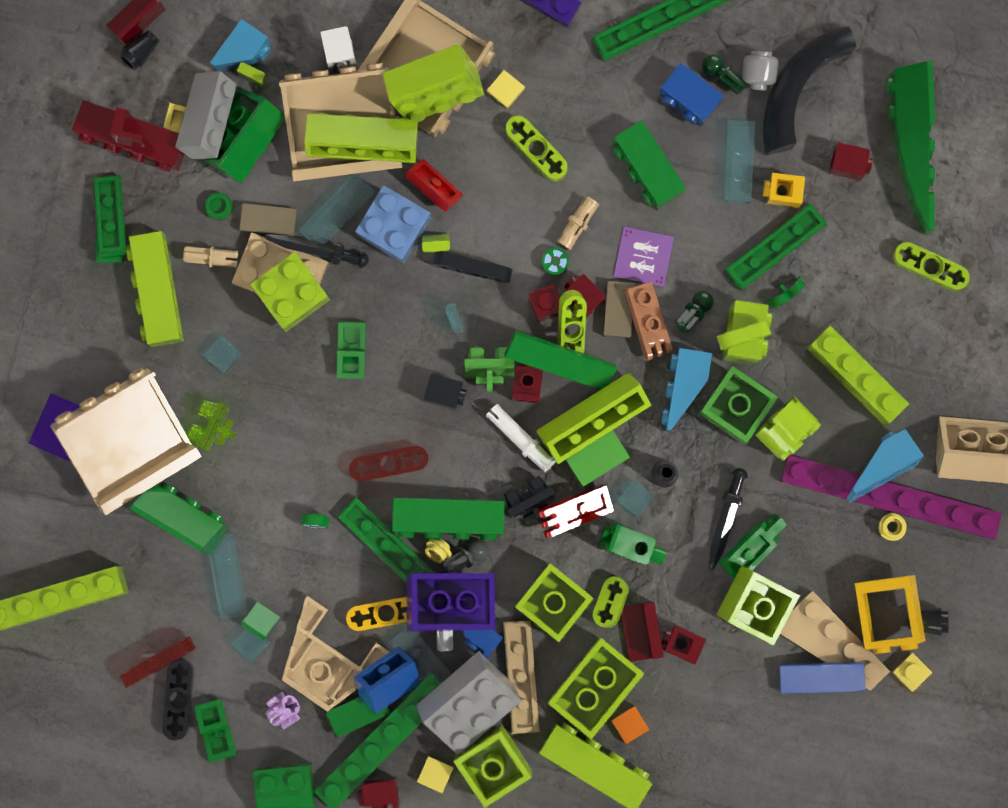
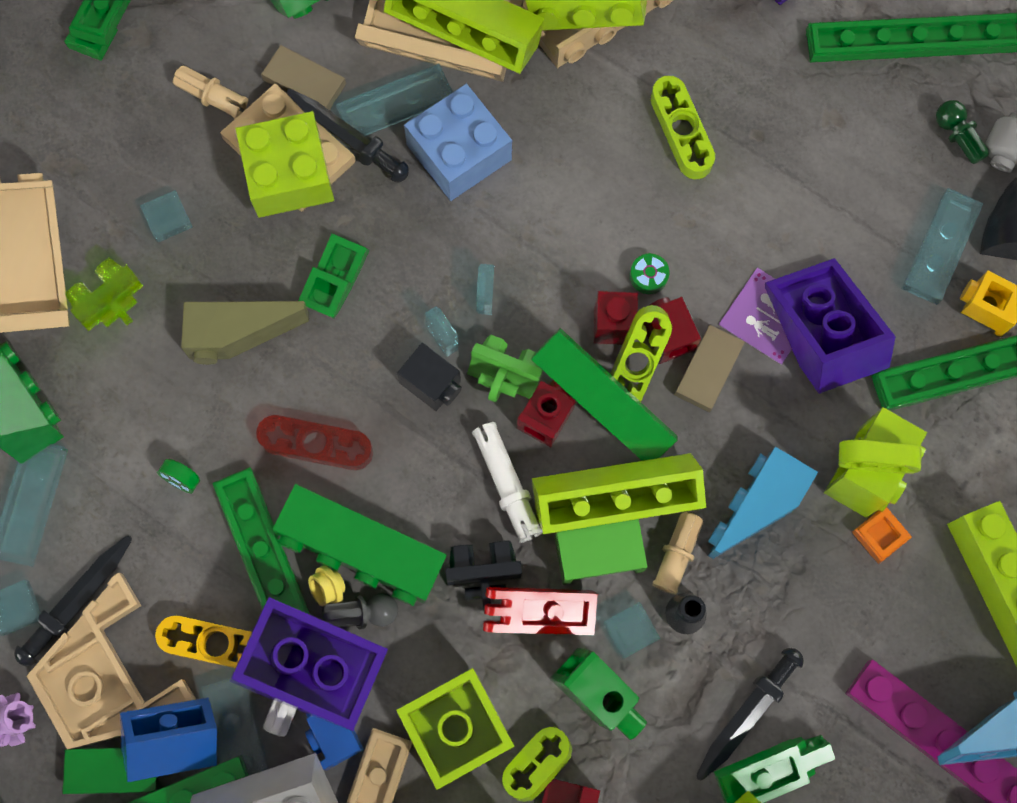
camera: 20 degrees right, 10 degrees down
(156, 289) = (120, 101): lime brick -> none
(218, 206) = (249, 39): green tile -> none
(260, 621) = (39, 580): tile -> none
(285, 625) = (71, 603): none -> black sword
(301, 414) = (230, 328): none -> olive slope
(433, 185) = (531, 117): red plate -> none
(435, 243) = (502, 186): lime tile -> none
(438, 358) = (442, 331): none -> clear light blue tile
(472, 267) = (538, 235): black beam -> none
(505, 89) = (672, 43): light yellow tile -> none
(577, 223) = (698, 237): tan pin -> none
(645, 438) = (678, 553): none -> tan axle
(648, 165) = (821, 201): green brick -> none
(648, 320) = (744, 397): nougat hinge -> none
(684, 249) = (830, 325): none -> dark purple slope
(690, 95) = (910, 137): blue brick -> none
(694, 311) = (812, 411): dark green axle -> none
(738, 405) = (828, 559): bright green brick -> none
(767, 373) = (881, 535): none -> orange tile
(787, 294) = (946, 442): green piece -> none
(788, 428) = (888, 621): lime brick -> none

